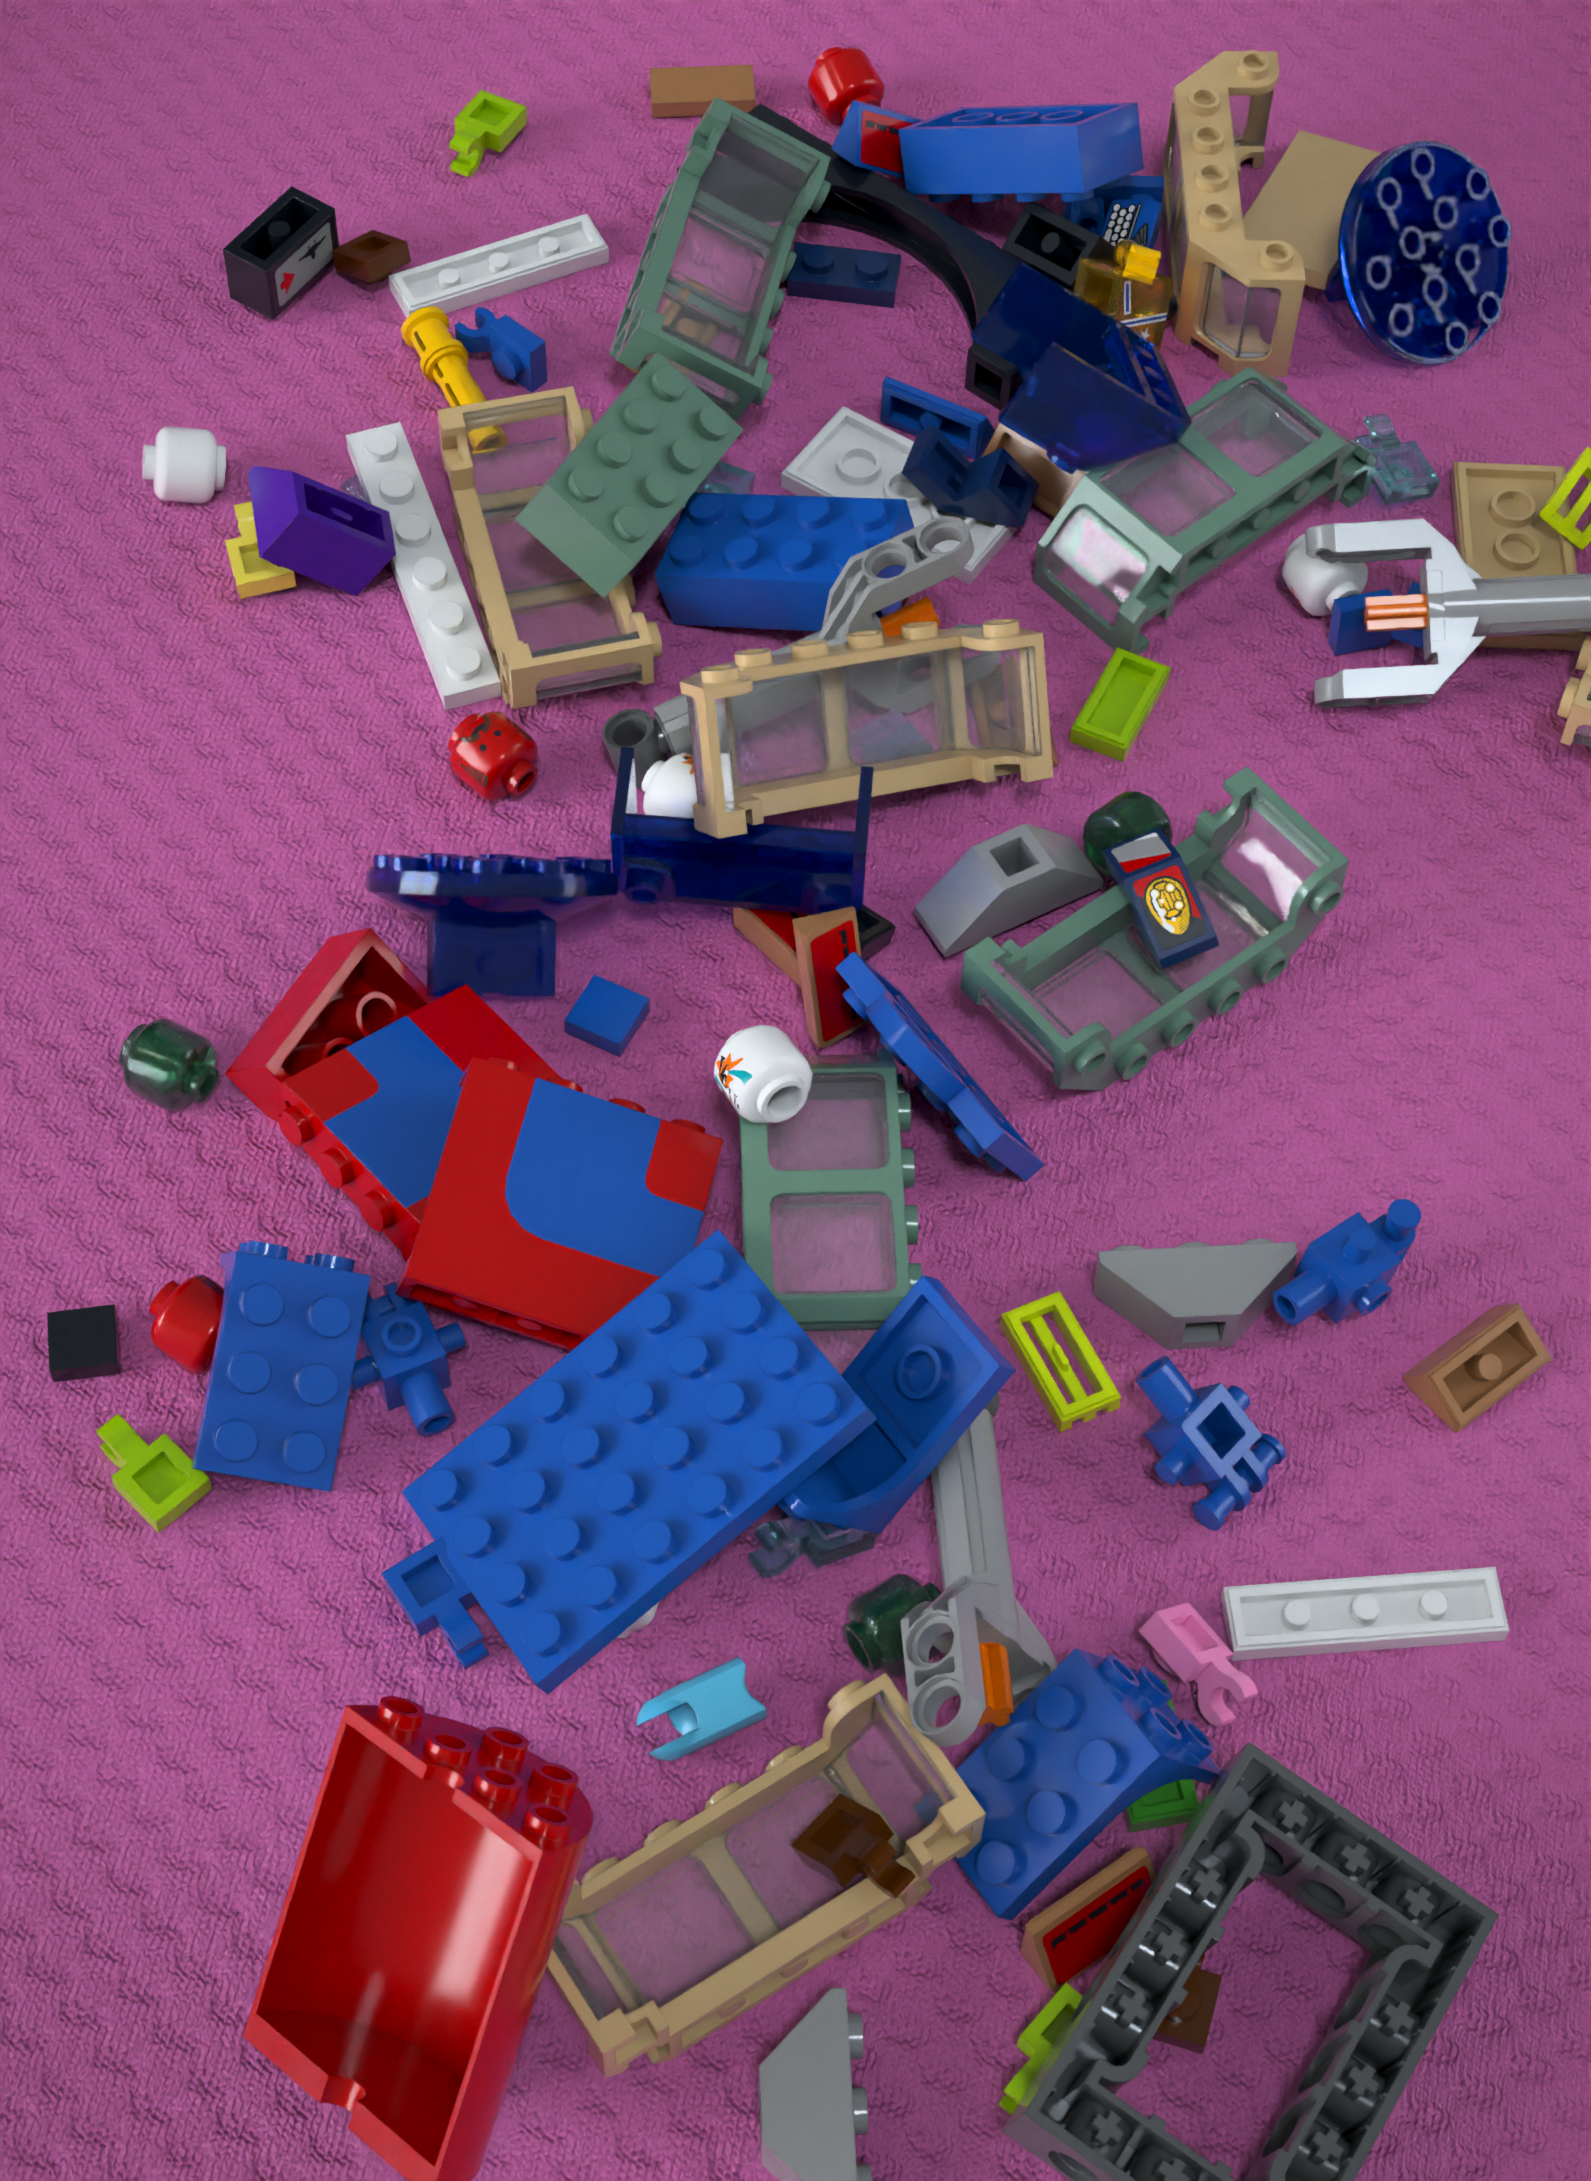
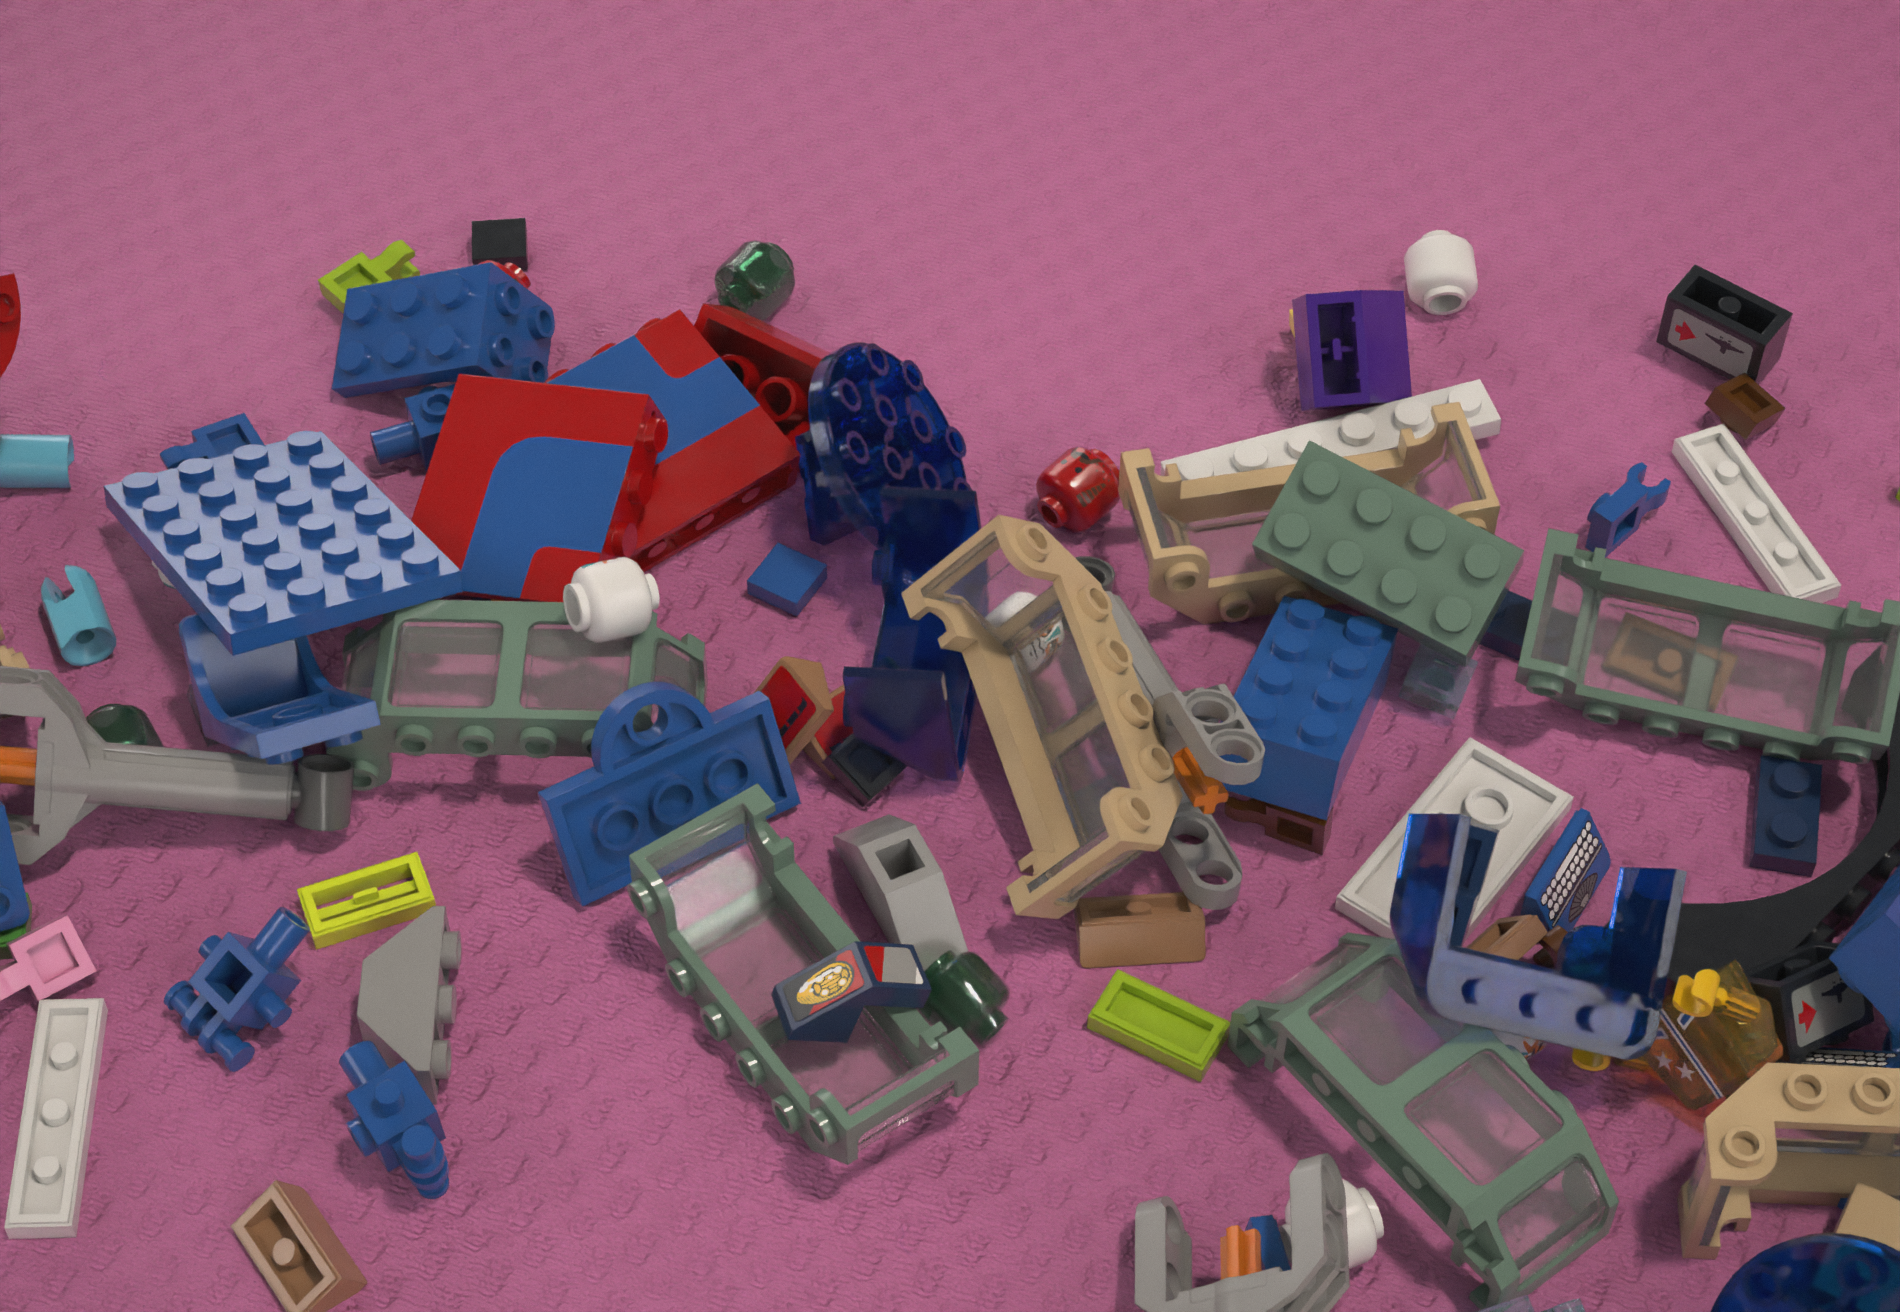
camera: 95 degrees right, 5 degrees down
(442, 356) = (1599, 464): yellow pin -> none

